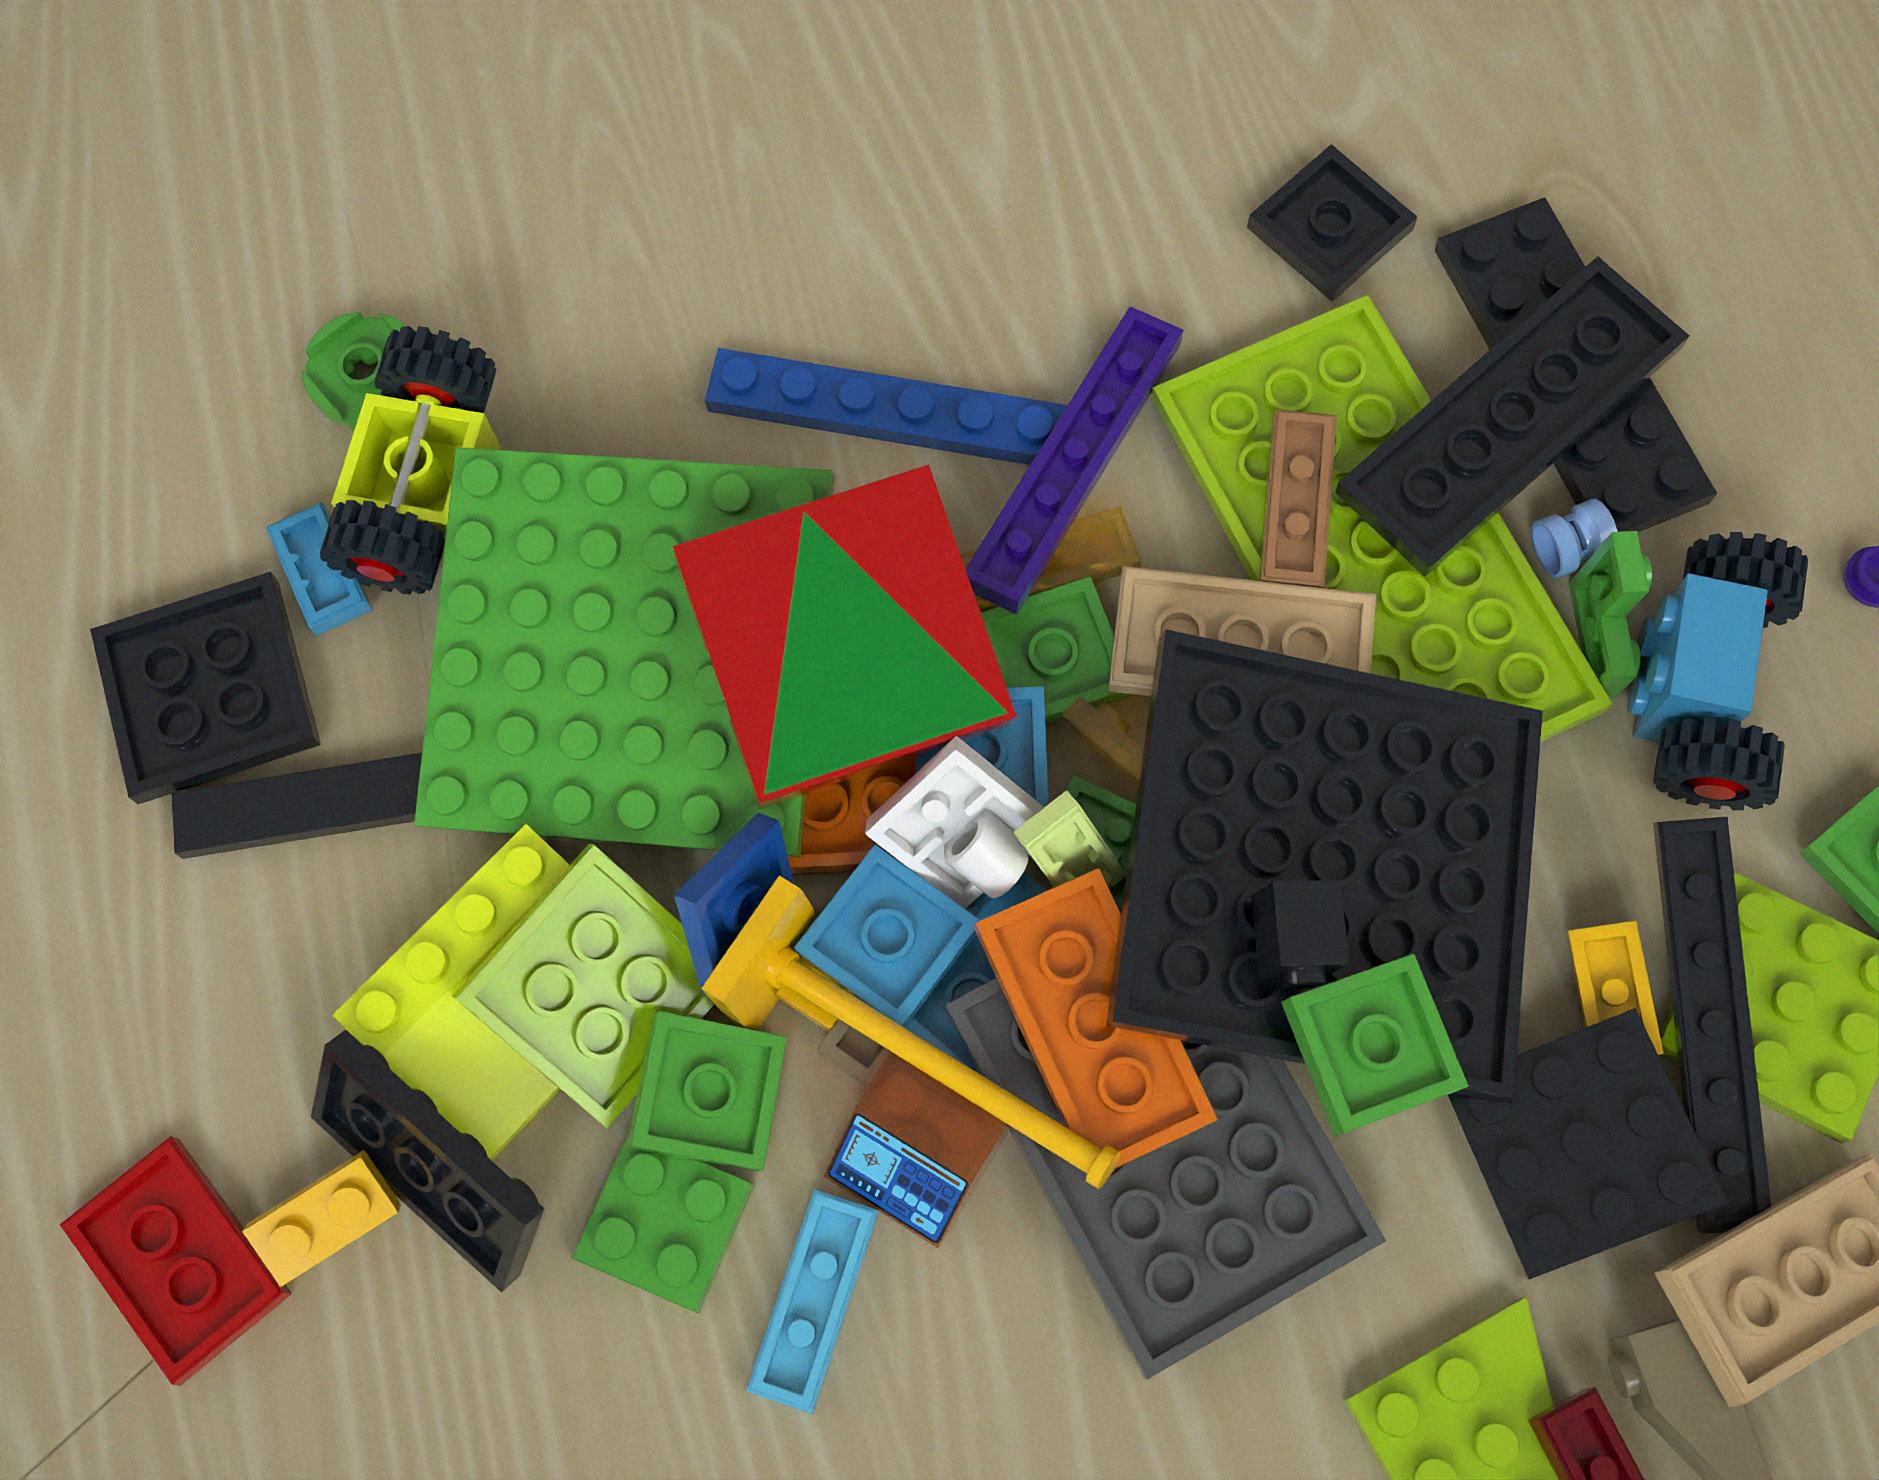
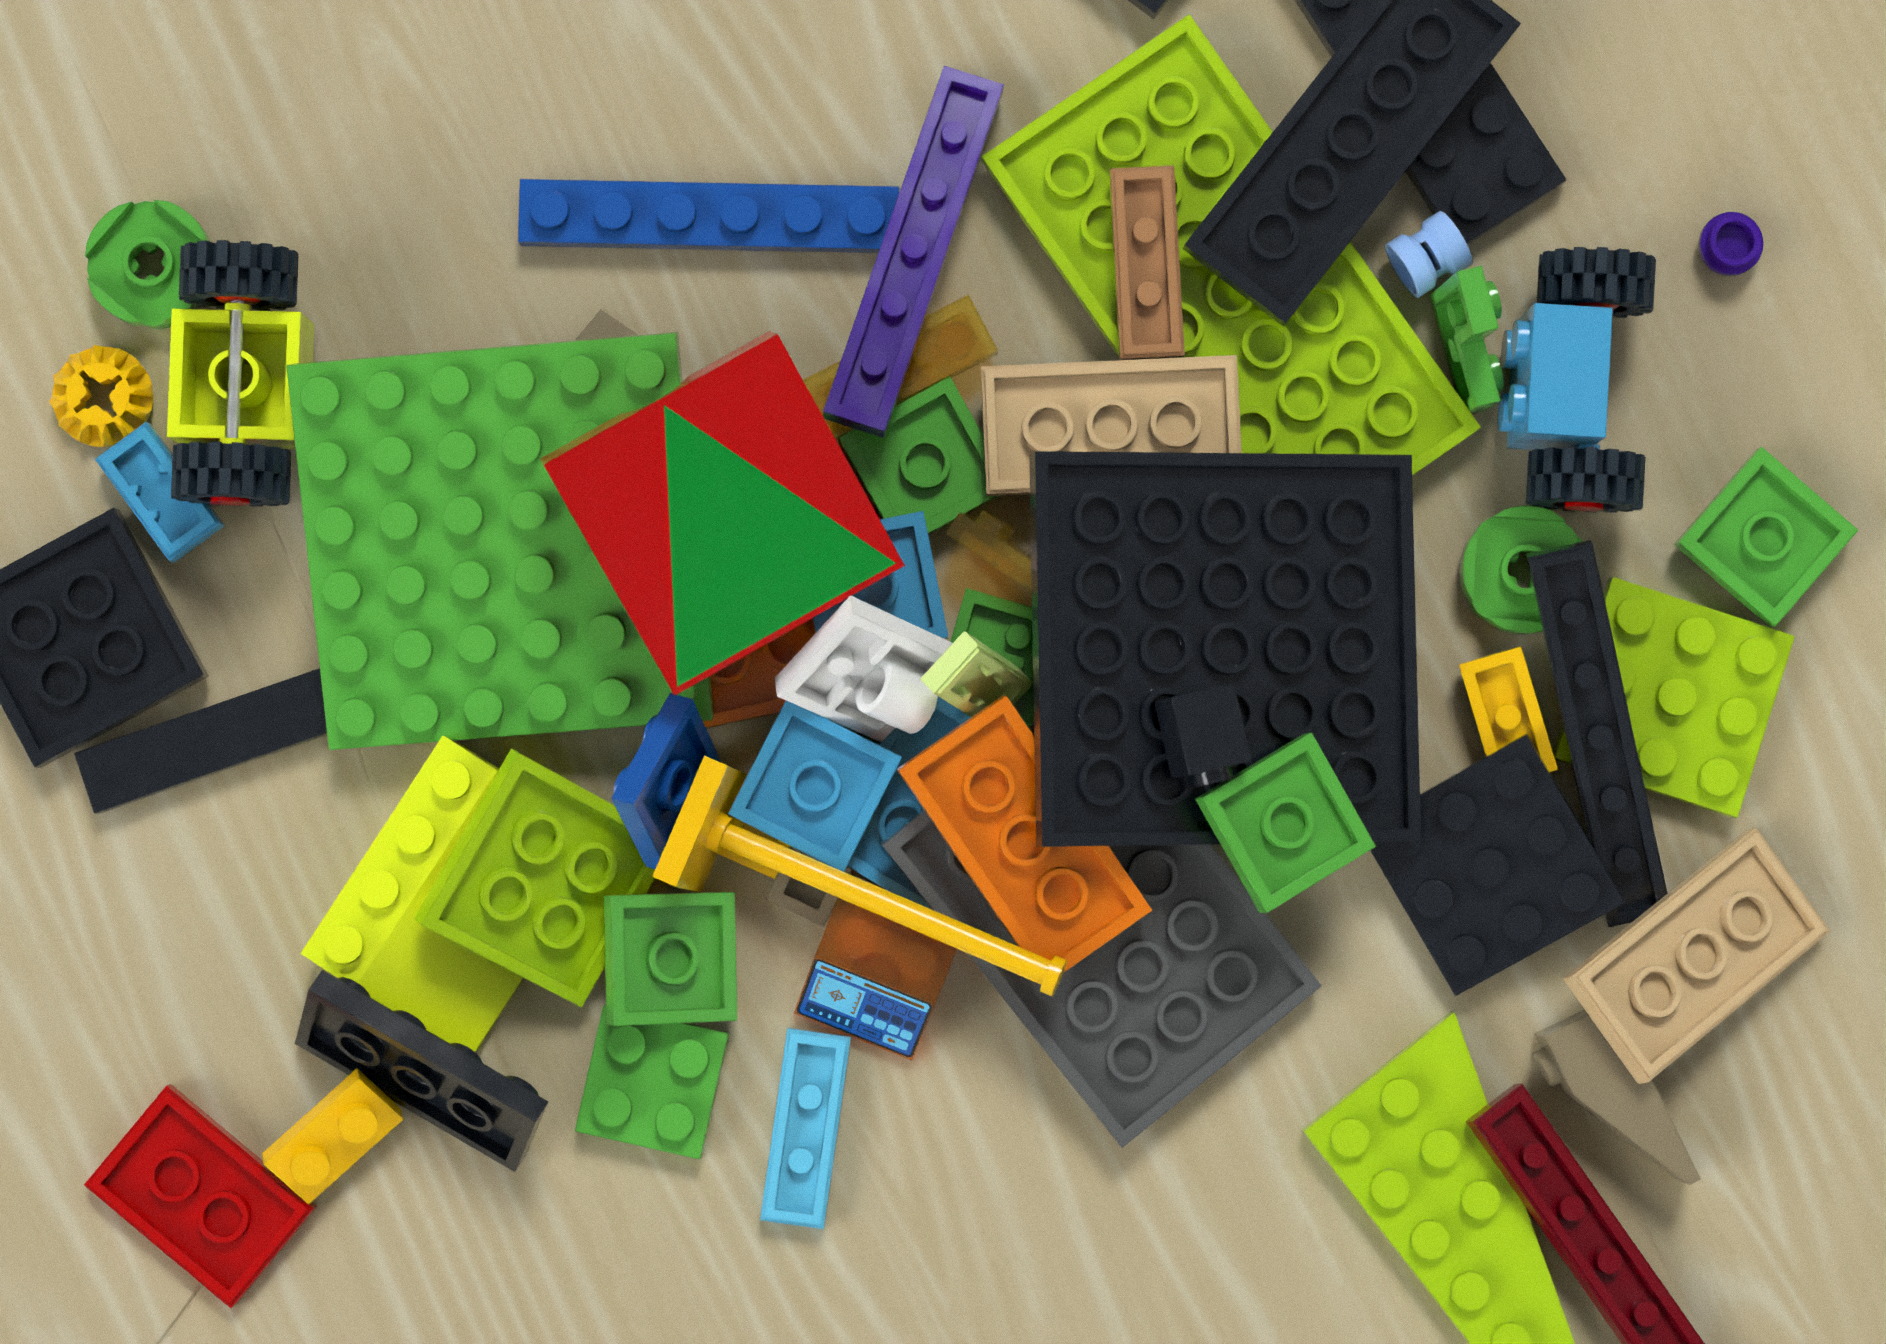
camera: 15 degrees left, 15 degrees up
(315, 477) = (130, 399): none -> yellow gear
(1602, 850) = (1485, 563): none -> bright green plate

